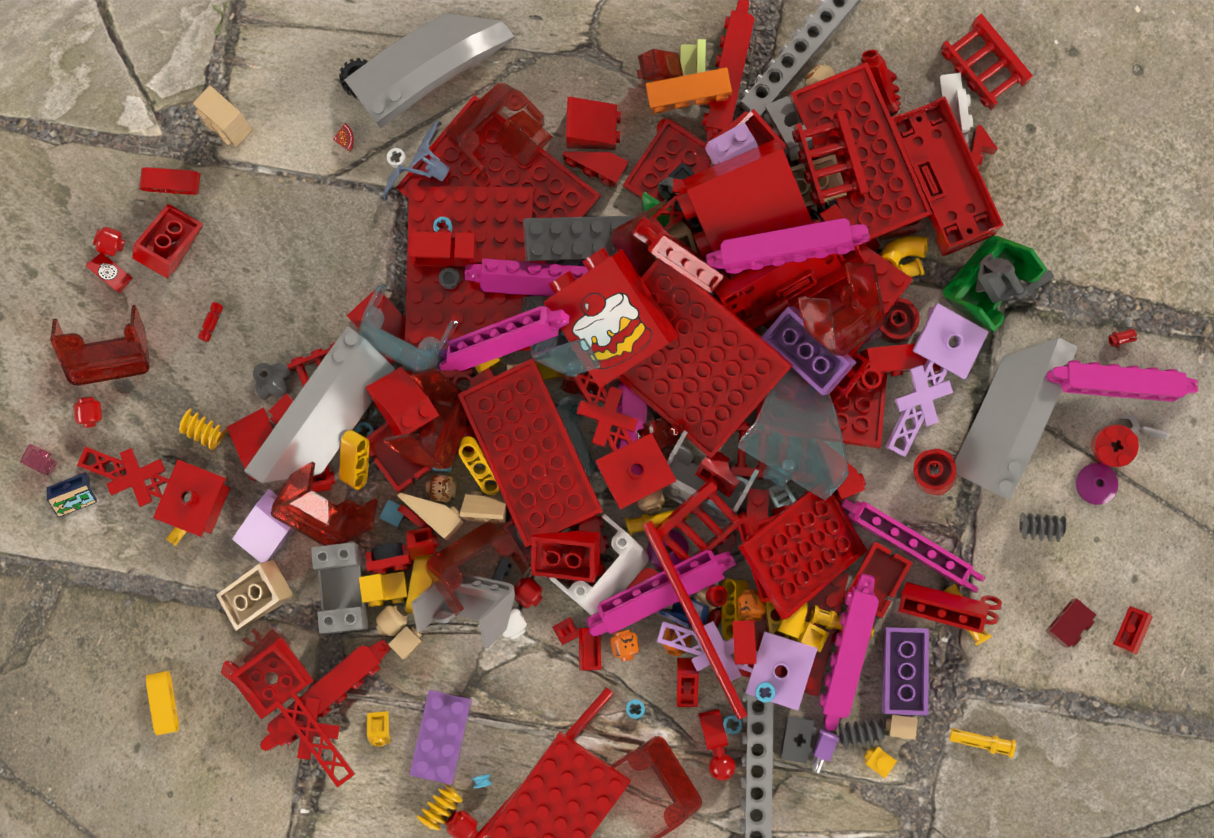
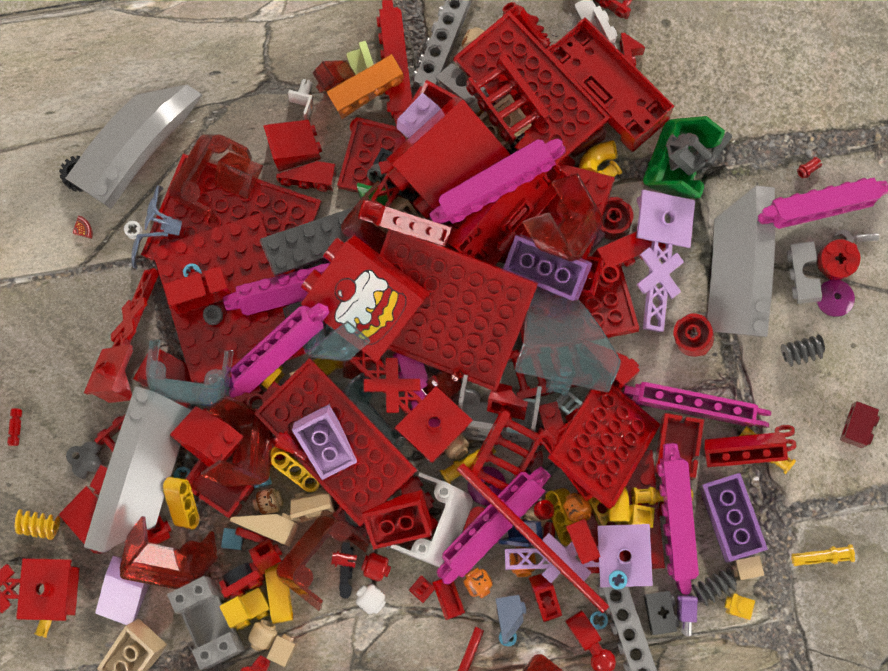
camera: 15 degrees left, 5 degrees down
(324, 301) = (109, 376): none -> red piece
(480, 437) = (286, 443): none -> red cone
(482, 600) = (337, 588): light grey windscreen -> none
(496, 573) = (341, 559): none -> red pin
(519, 450) = (324, 442): none -> lavender slope
(619, 77) = (302, 97): none -> white bracket
(645, 688) = (510, 615): none -> sand blue slope
(1077, 428) = (805, 289): none -> light grey arch

